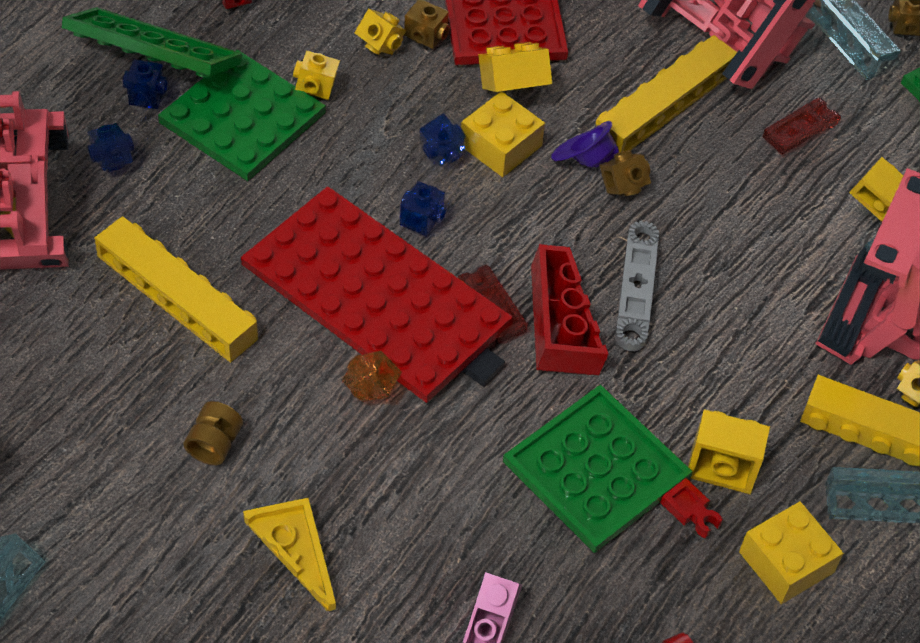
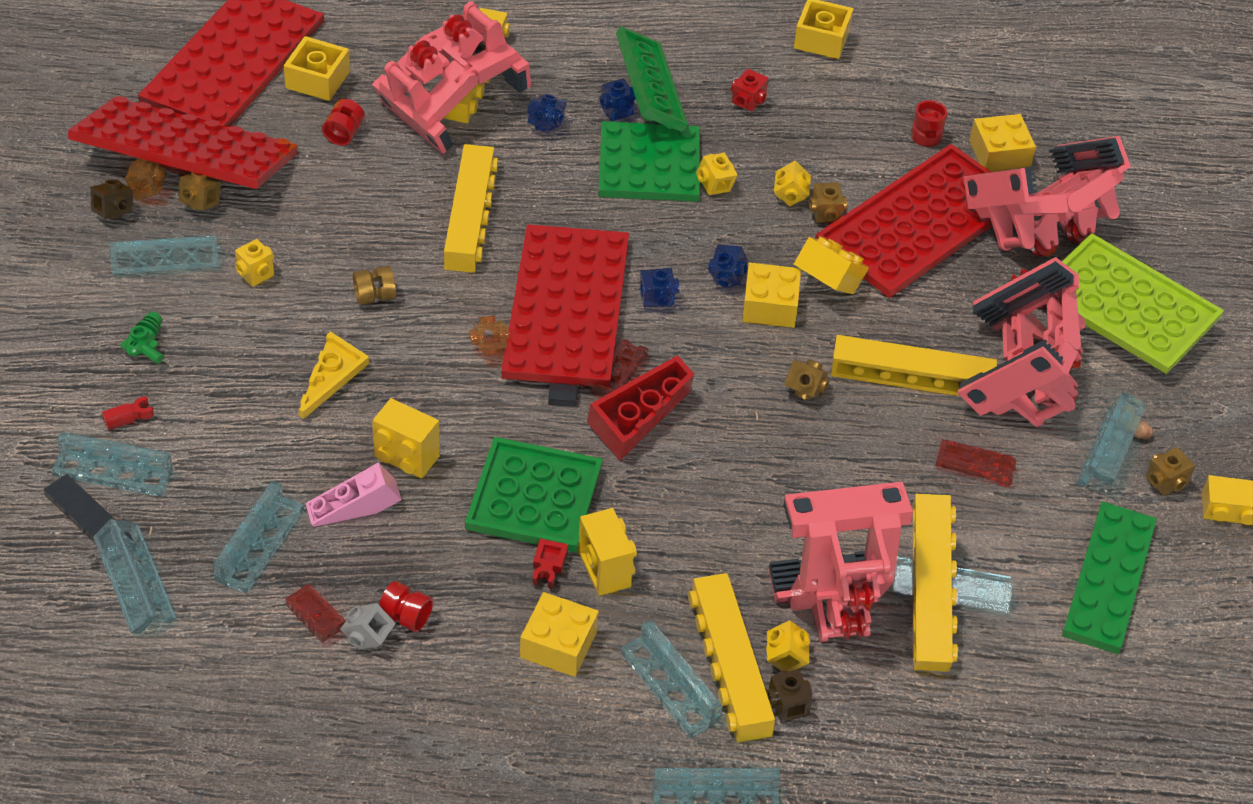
camera: 55 degrees right, 5 degrees down
(80, 522) = (254, 262): none -> yellow brick
(458, 530) = (406, 438): none -> yellow brick
(589, 147) = (811, 348): dark purple piece -> none
(636, 302) = (699, 444): light grey piece -> none

